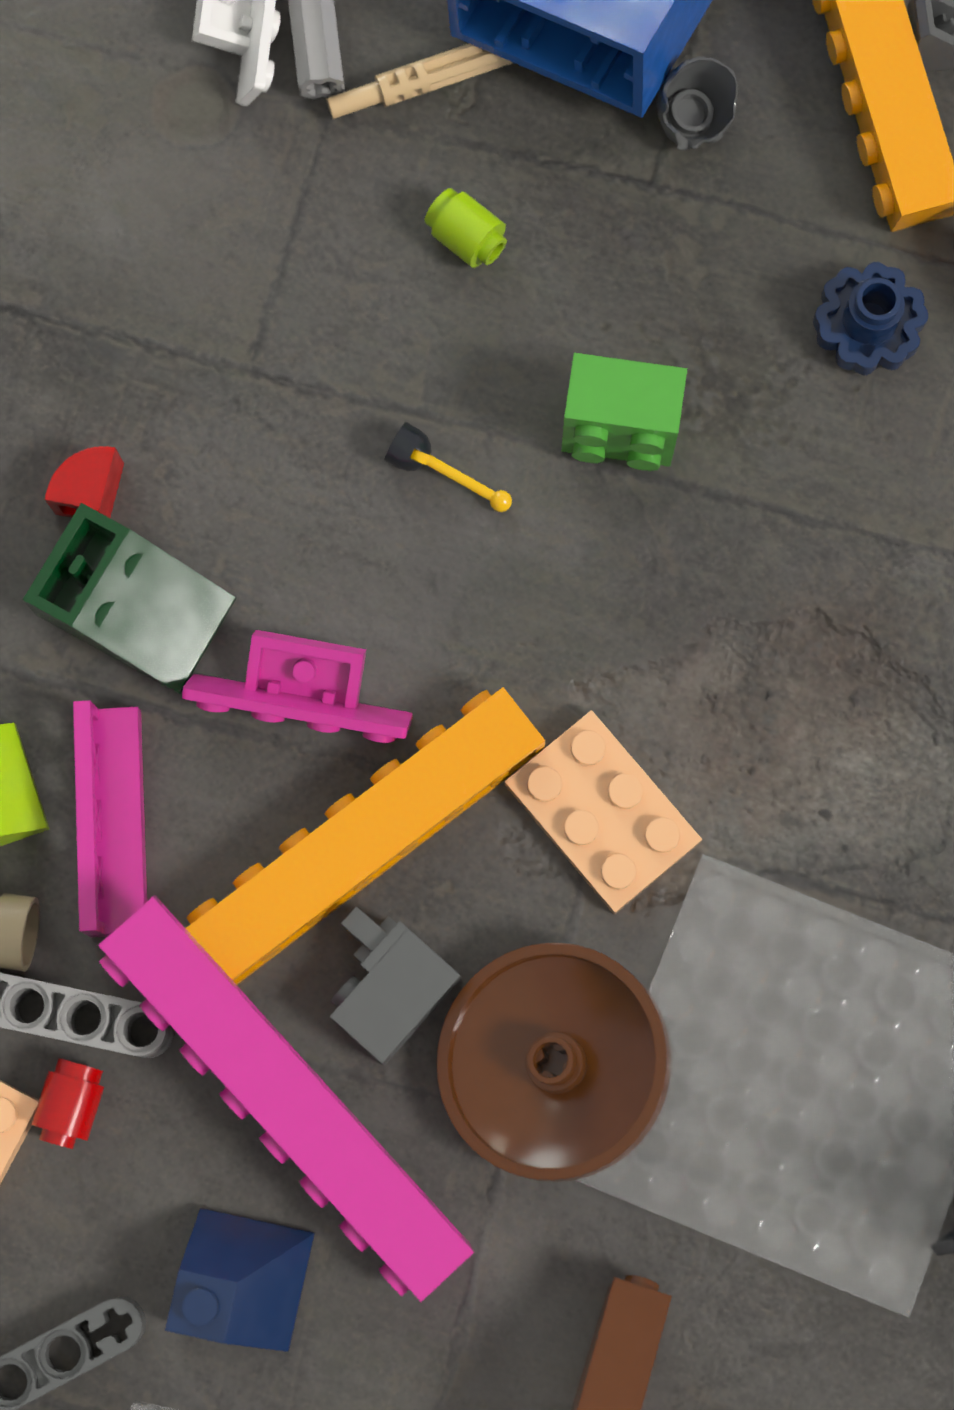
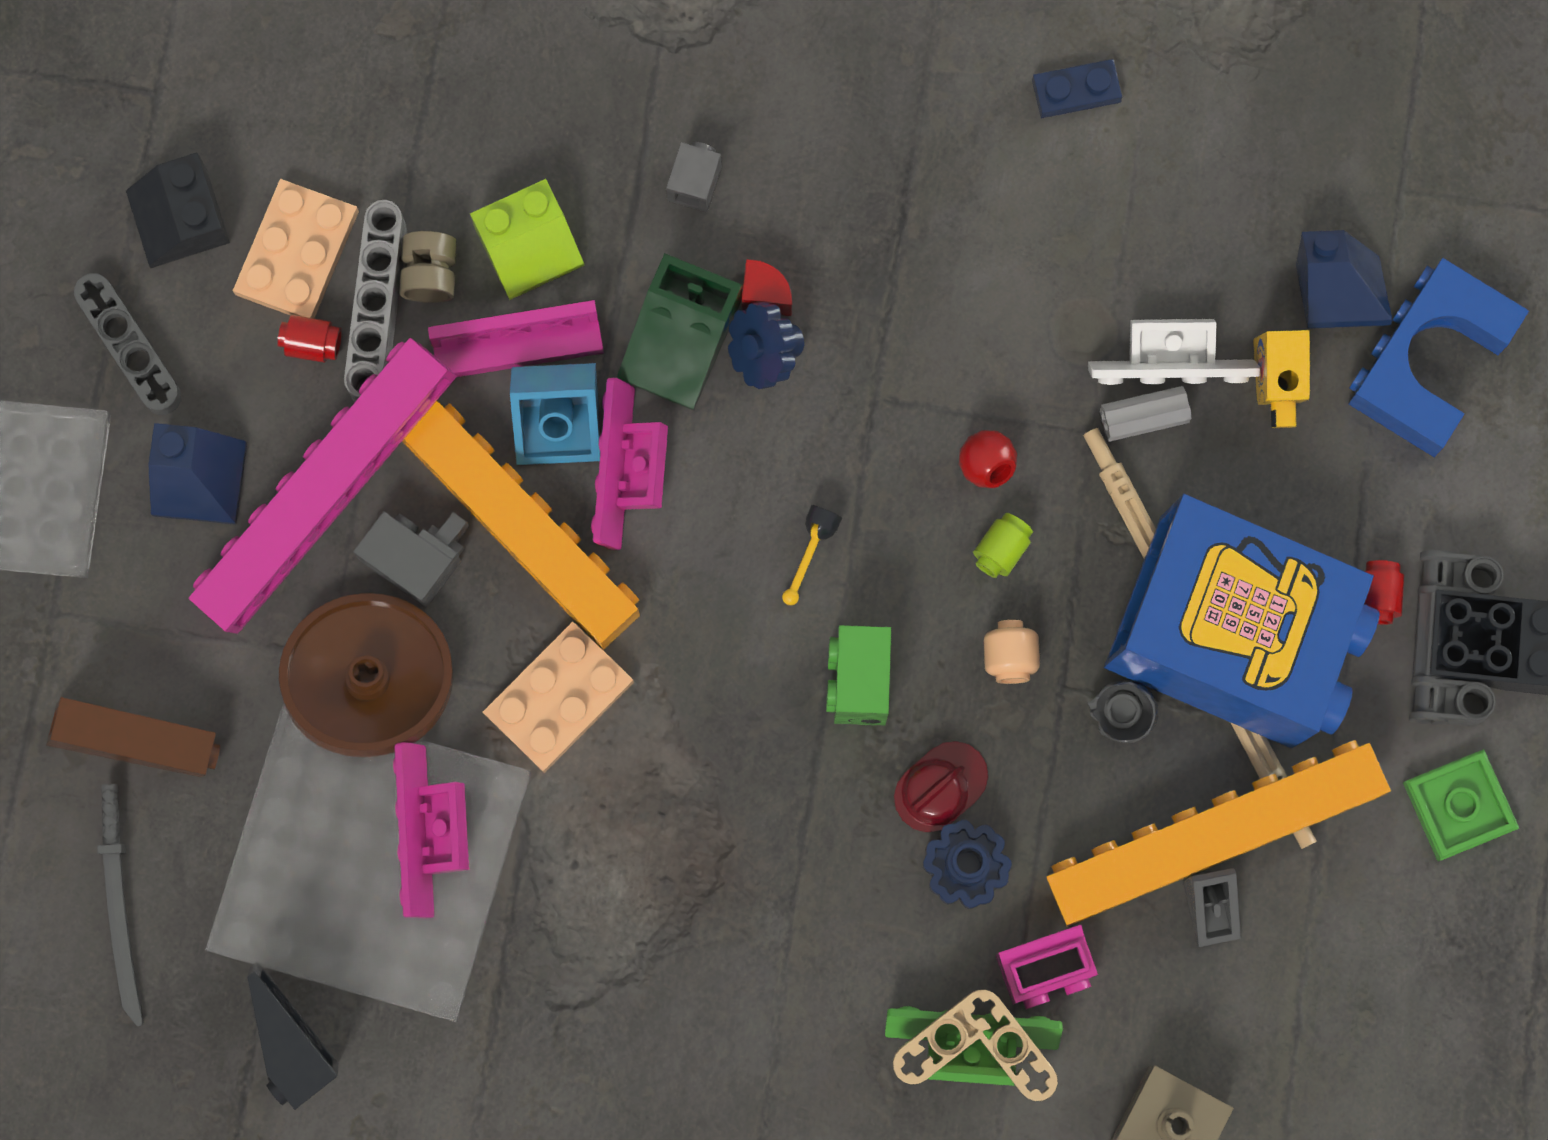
camera: 80 degrees right, 0 degrees up
(165, 491) = (764, 345): none -> dark blue plant
(218, 775) = (555, 413): none -> dark azure slope
(352, 230) = (988, 459): none -> red piece
(606, 232) = (1011, 652): none -> light nougat head
(765, 343) = (941, 786): none -> dark red piece
(776, 988) = (430, 829): none -> dark pink bracket

